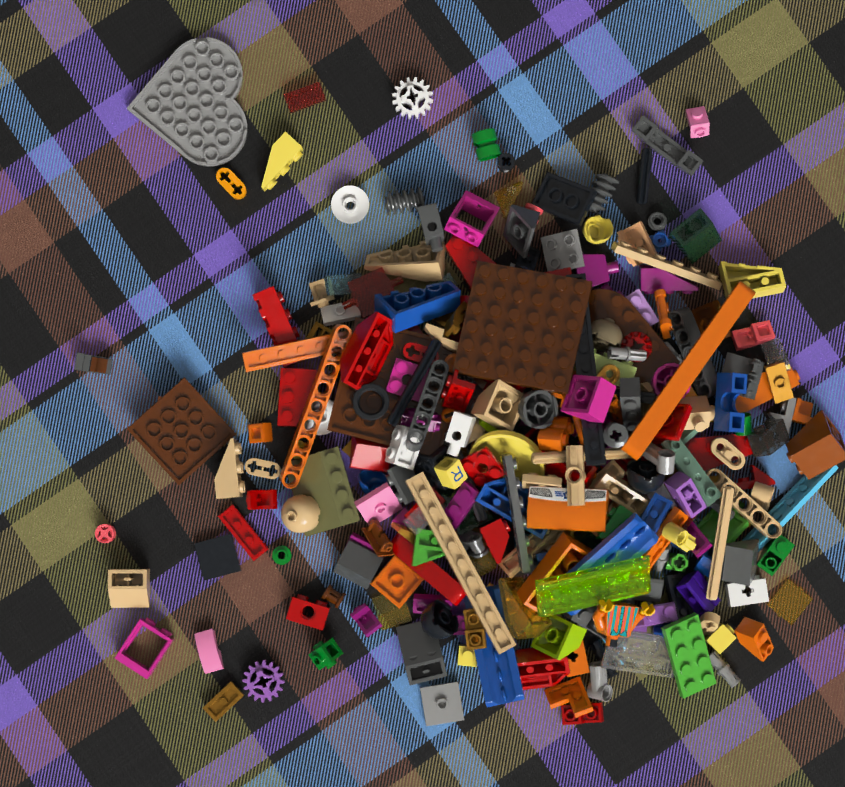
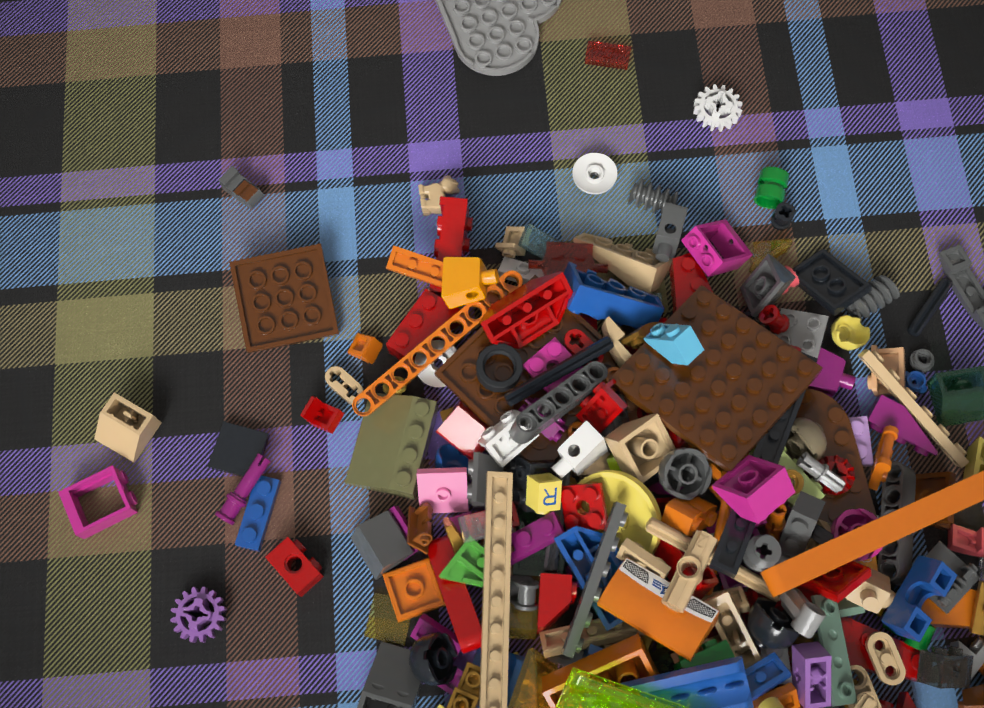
camera: 30 degrees right, 15 degrees down
(101, 533) = (137, 355): coral wheel -> none
(208, 651) = (161, 546): bright pink slope -> none
(223, 701) = (141, 611): pearl gold plate -> none
(228, 186) = (491, 95): light orange beam -> none
(228, 477) = (305, 365): tan slope -> none
(240, 591) = (237, 499): none -> magenta pin
(243, 288) = (433, 192): none -> tan animal
(243, 532) = (282, 440): red tile -> none
(258, 591) = (258, 514): none -> blue plate
(282, 154) = (551, 95): light yellow slope -> none
(286, 550) = (309, 494): green plate -> none
(300, 513) = (353, 452): tan cylinder -> none
(311, 353) = (465, 280): none -> light orange torso
(325, 654) = (284, 624): green brick -> none
(331, 598) = (333, 557): reddish brown bush -> none
(366, 619) = (353, 611): magenta bracket -> none
(483, 322) = (675, 342): none -> medium azure slope
(539, 252) = (771, 316): none -> red bush

